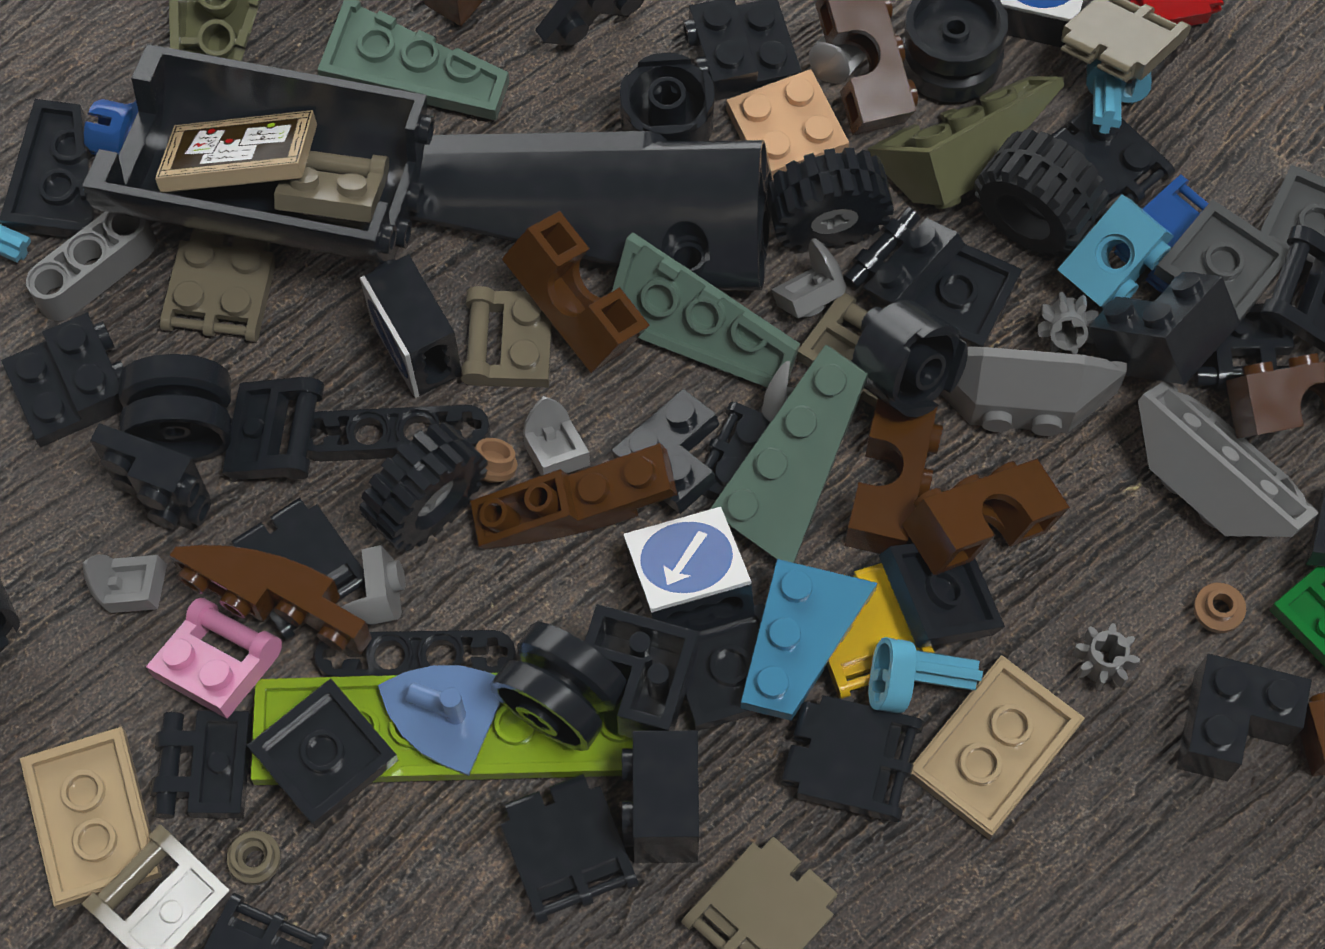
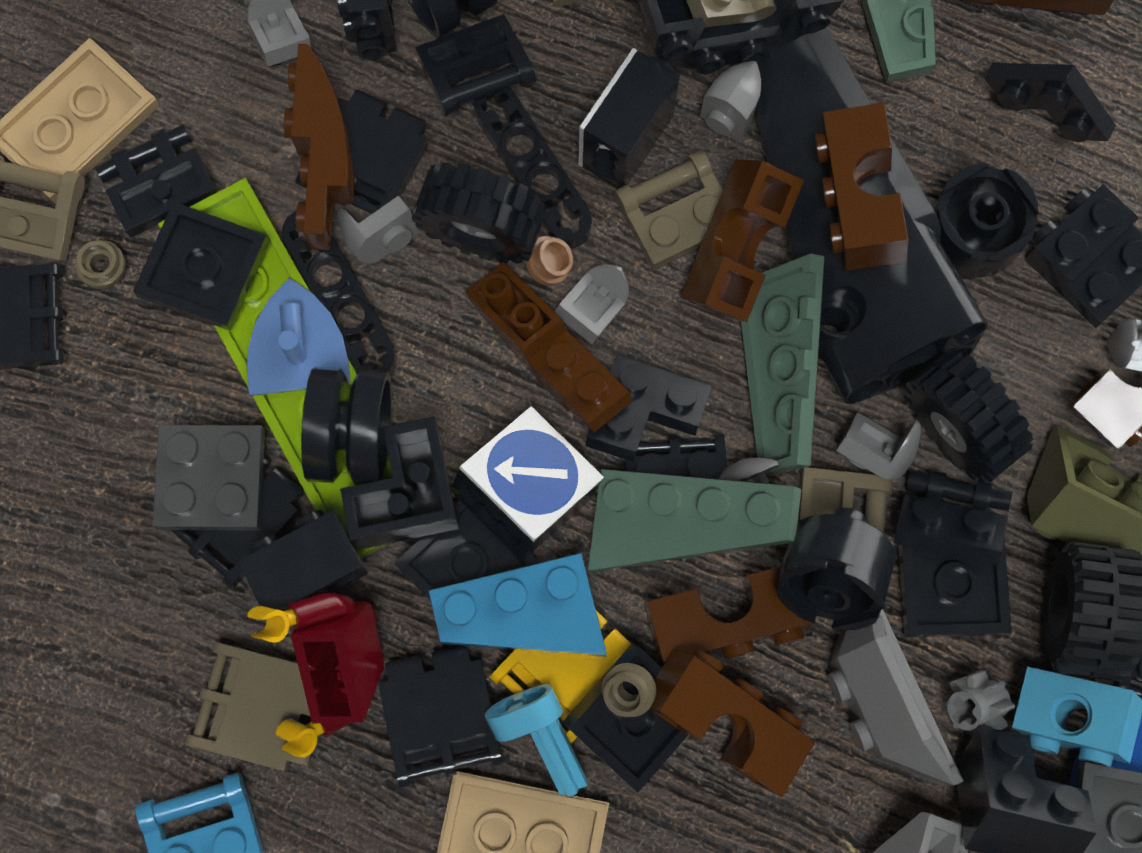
camera: 60 degrees right, 10 degrees up
(207, 672) = (232, 131): bright pink plate -> none
(443, 239) = (732, 100): none -> light grey plate
(527, 846) = (209, 477): none -> dark grey plate
(628, 184) = (869, 226): none -> reddish brown arch
(770, 808) = (336, 660): none -> dark red torso
(790, 119) = (1039, 340): light nougat plate -> none
(936, 573) = (622, 702): none -> dark tan plate

